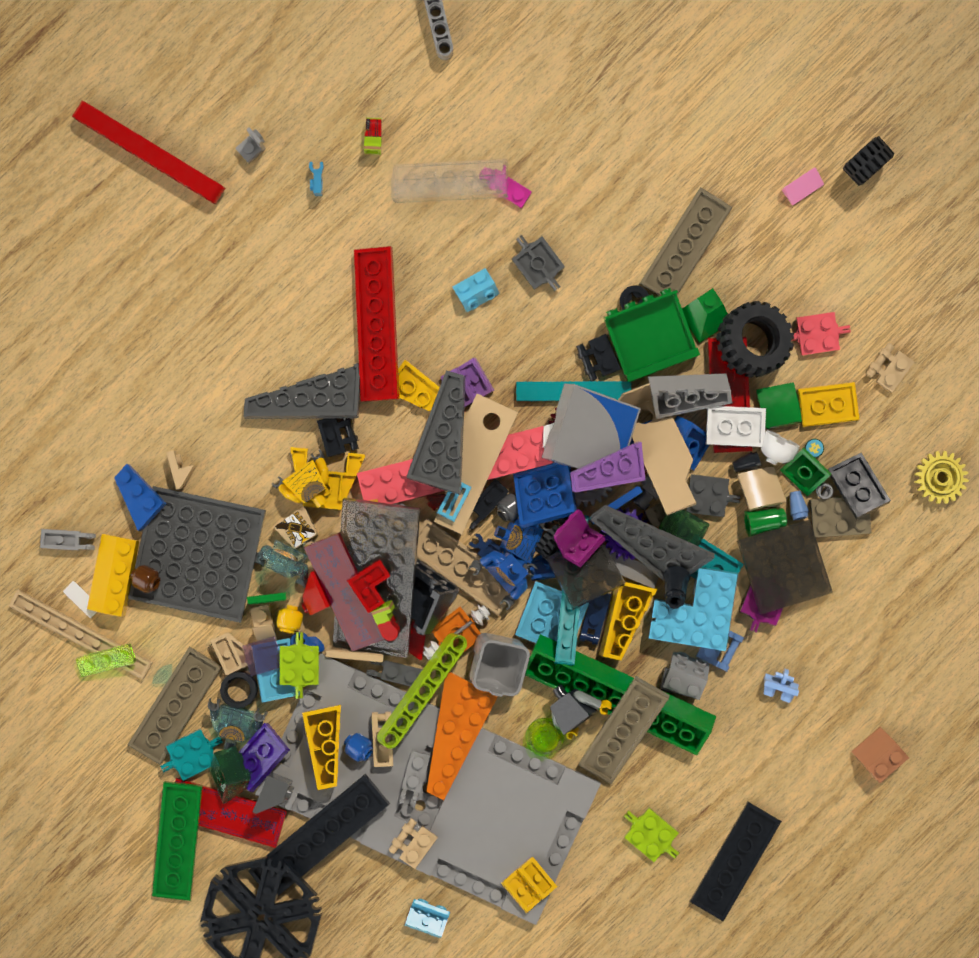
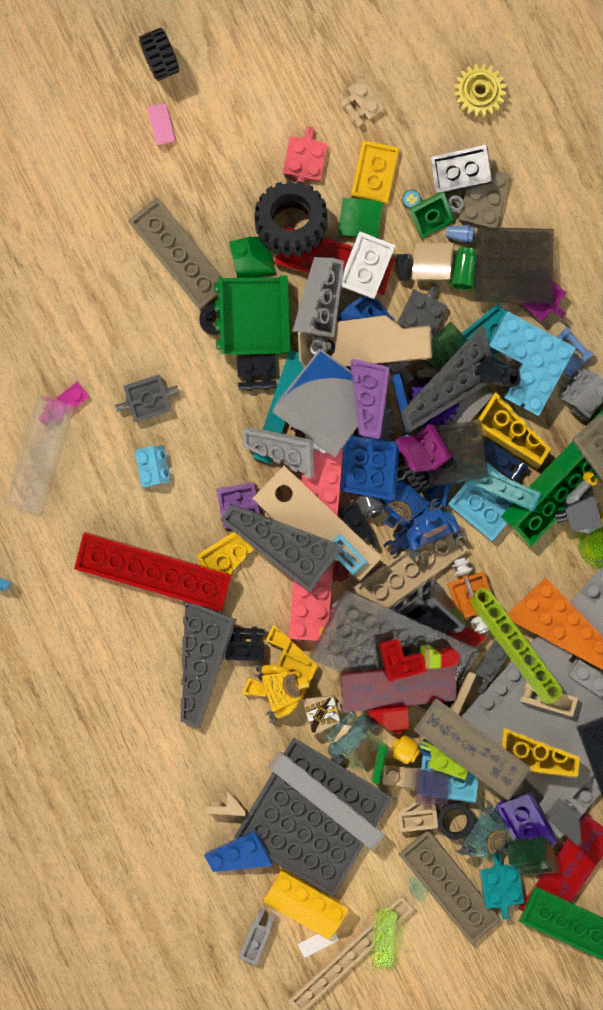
camera: 70 degrees left, 0 degrees up
(145, 579) = (320, 874): reddish brown head -> none
(216, 561) = (326, 800): none -> light grey beam
(310, 681) = (472, 749): none -> dark tan tile
(358, 747) = (549, 725): blue head -> none
(499, 664) = (516, 565): light grey piece -> none
(533, 407) = (282, 448): none -> light grey wing
(647, 406) = (319, 342): none -> white plate
(778, 448) = (401, 232): white cylinder -> none

